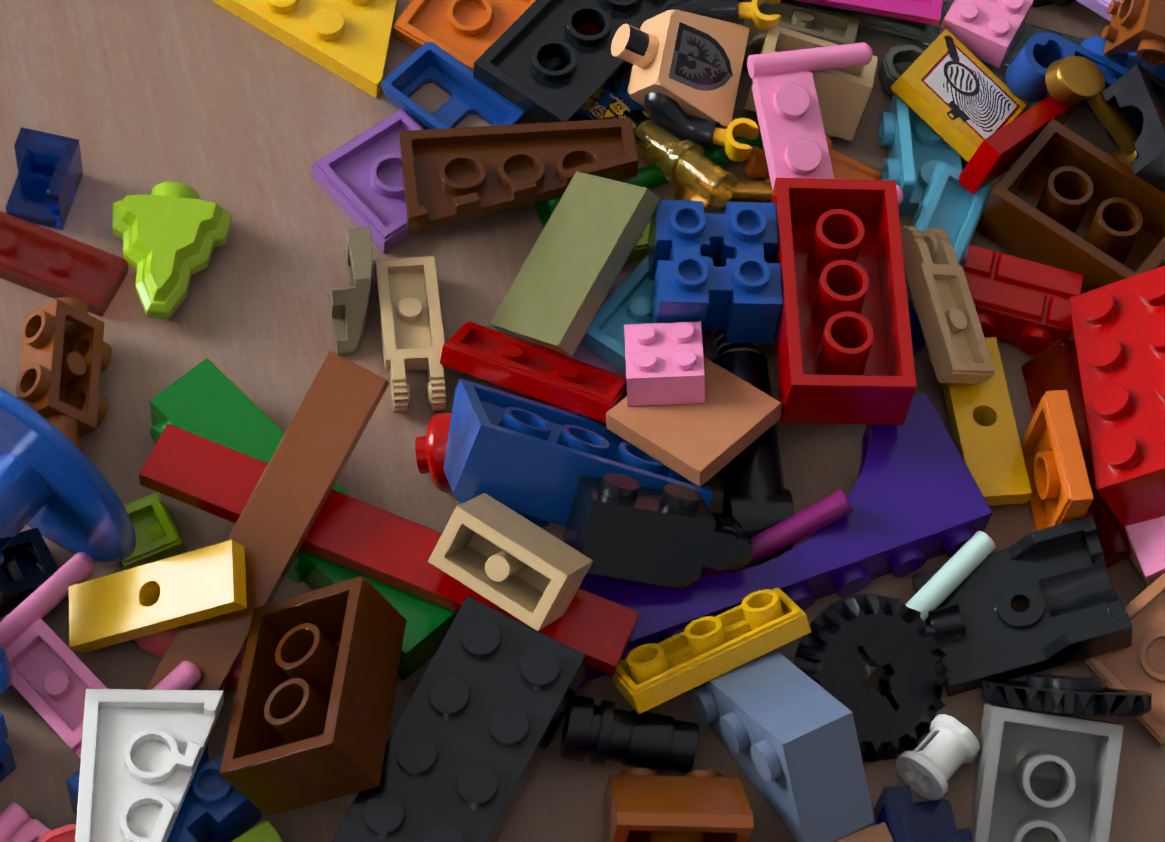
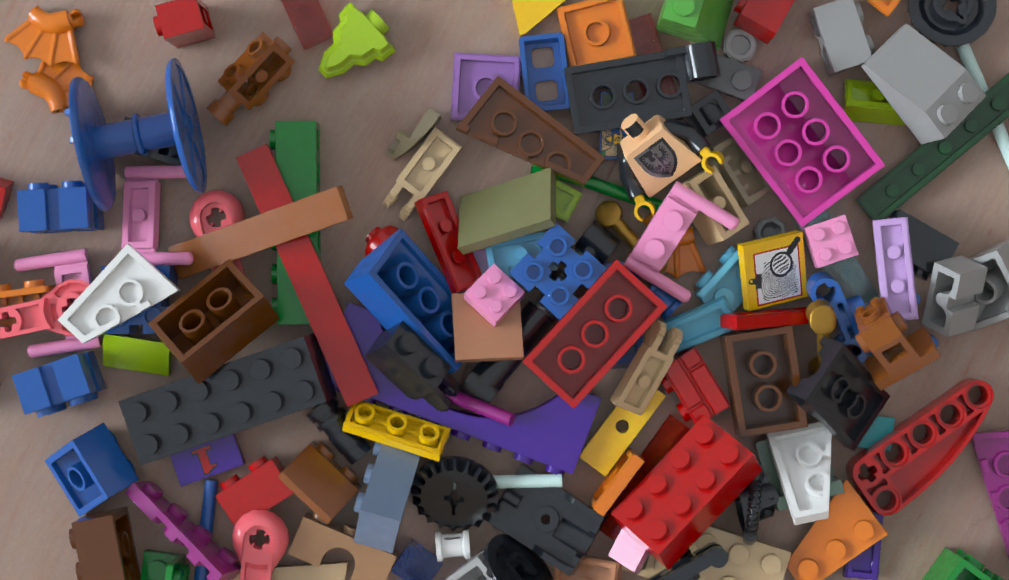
camera: 50 degrees right, 30 degrees up
(154, 532) = (228, 172): lime tile -> none
(157, 596) = (197, 219): yellow tile -> none
(510, 561) = (335, 336): tan brick -> none
(684, 163) = (609, 198): clear yellow pin -> none

